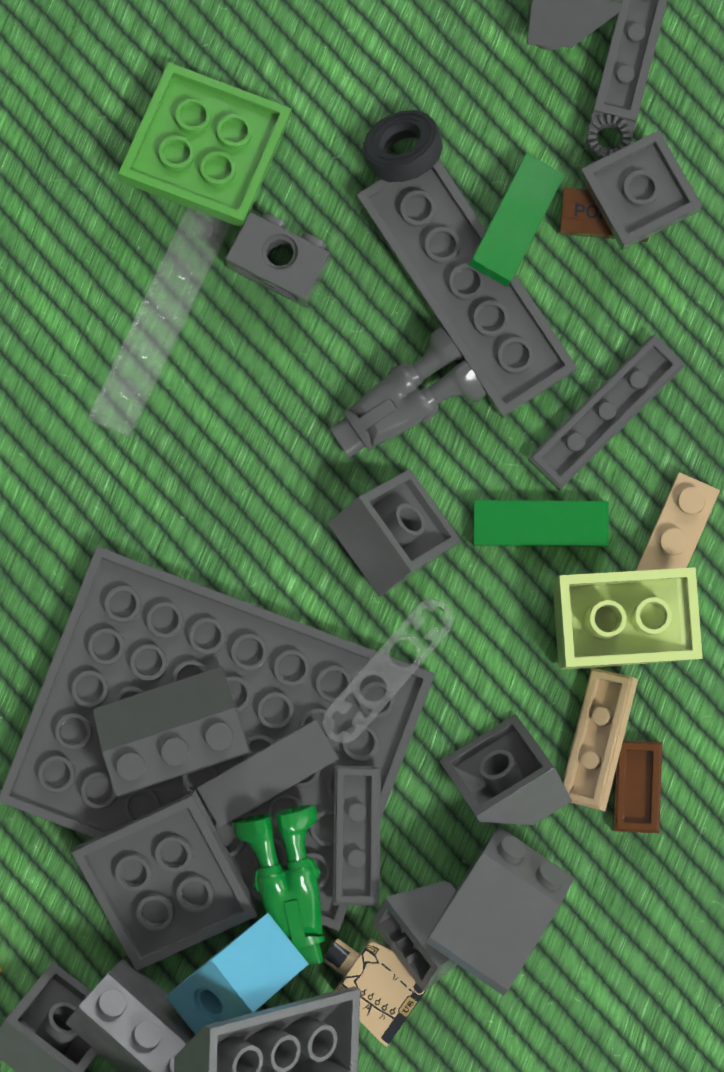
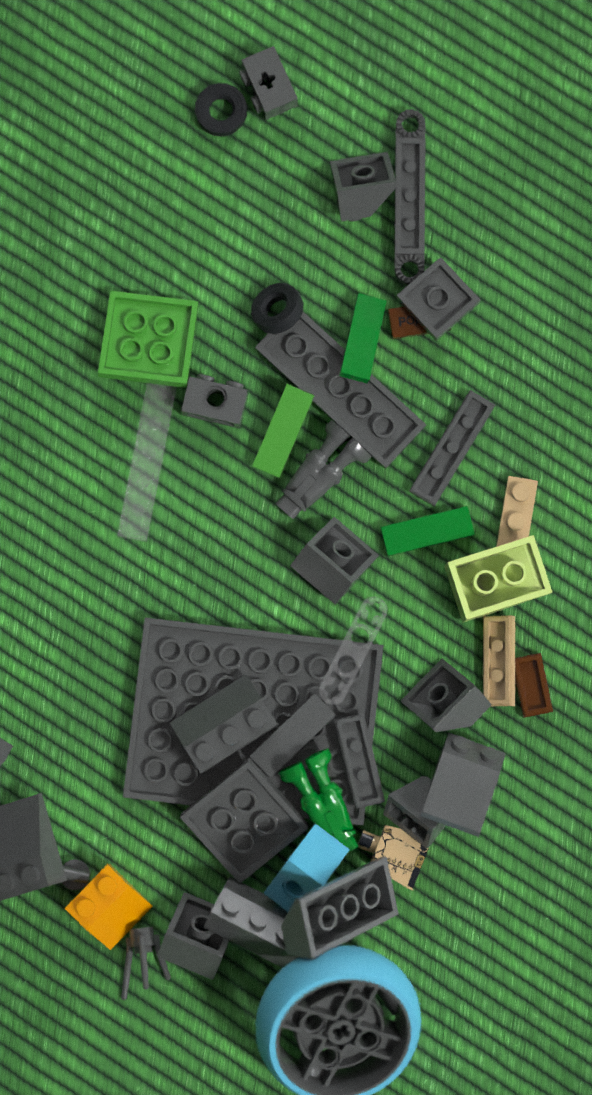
camera: 10 degrees left, 0 degrees up
(367, 325) = (283, 430): none -> bright green tile

